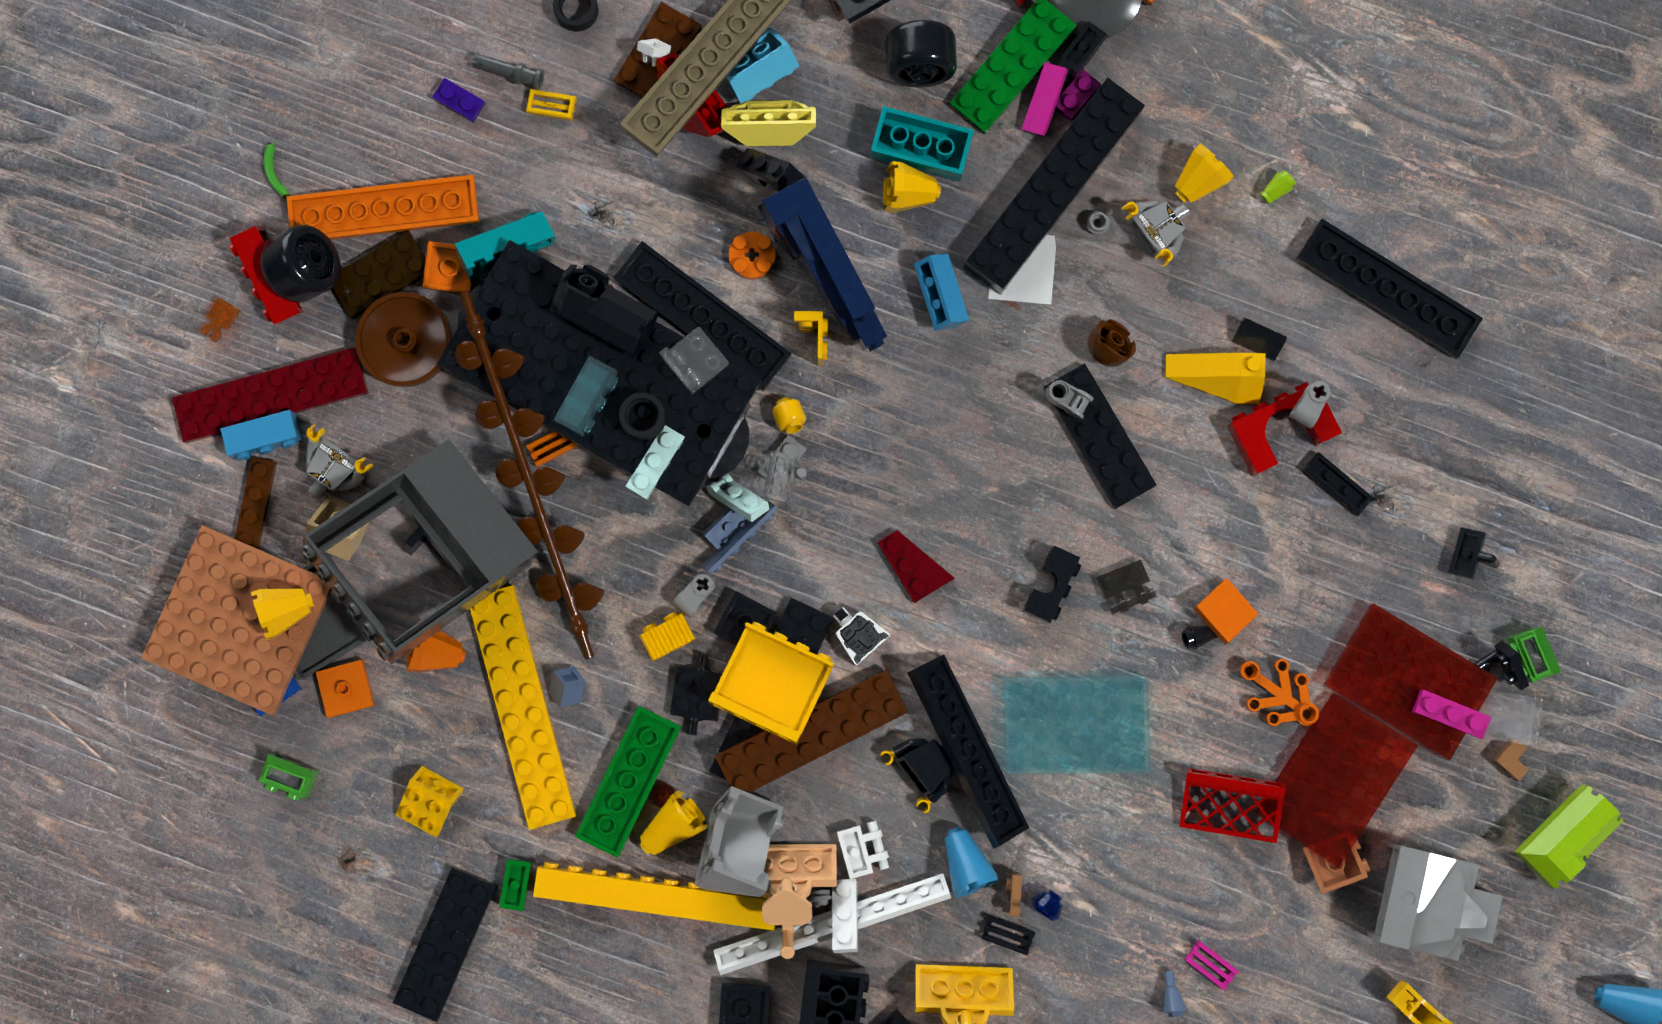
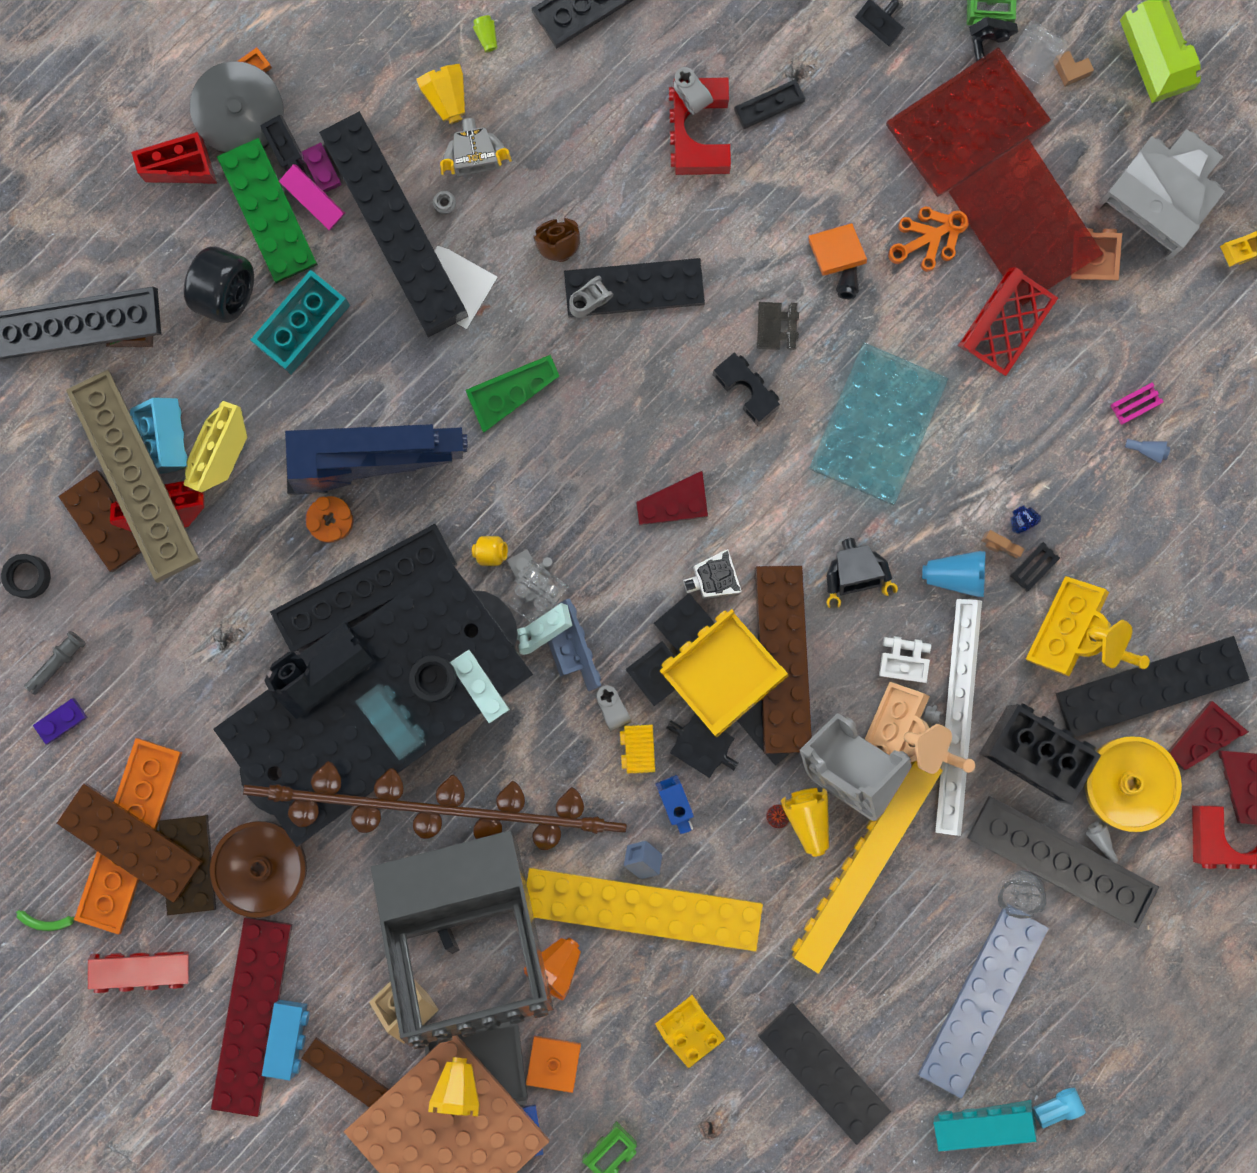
camera: 65 degrees left, 0 degrees up
(222, 316) = (156, 1029): clear orange plate -> none
(300, 263) = (143, 933): black wheel -> none
(332, 465) = (344, 986): light grey torso -> none
(376, 213) = (129, 842): none -> reddish brown plate
(444, 269) = (211, 798): orange tile -> none
(483, 250) = (212, 759): teal wedge -> none
(515, 884) = (799, 985): green plate -> none
(534, 454) = (419, 796): orange tile -> none
(548, 113) = (105, 654): yellow tile -> none
(628, 781) = (752, 842): green plate -> none
(637, 687) = (672, 797): none -> blue torso
(652, 50) = (99, 522): white tile -> none
(694, 360) = (403, 608): clear bracket -> none
(766, 169) = (257, 470): black arch -> none
(806, 323) = (414, 496): yellow bracket -> none
(845, 916) = (958, 701): white plate -> none
(908, 188) = (334, 353): yellow cone -> none
(941, 292) = (442, 365): dark azure brick -> none
(945, 363) = (505, 393): none -> green wing
(968, 751) = (860, 527): black plate -> none
(1225, 375) = (632, 152): yellow wedge -> none
(1259, 338) = (612, 111): black slope -> none
(1451, 714) = (1012, 99): dark pink plate -> none

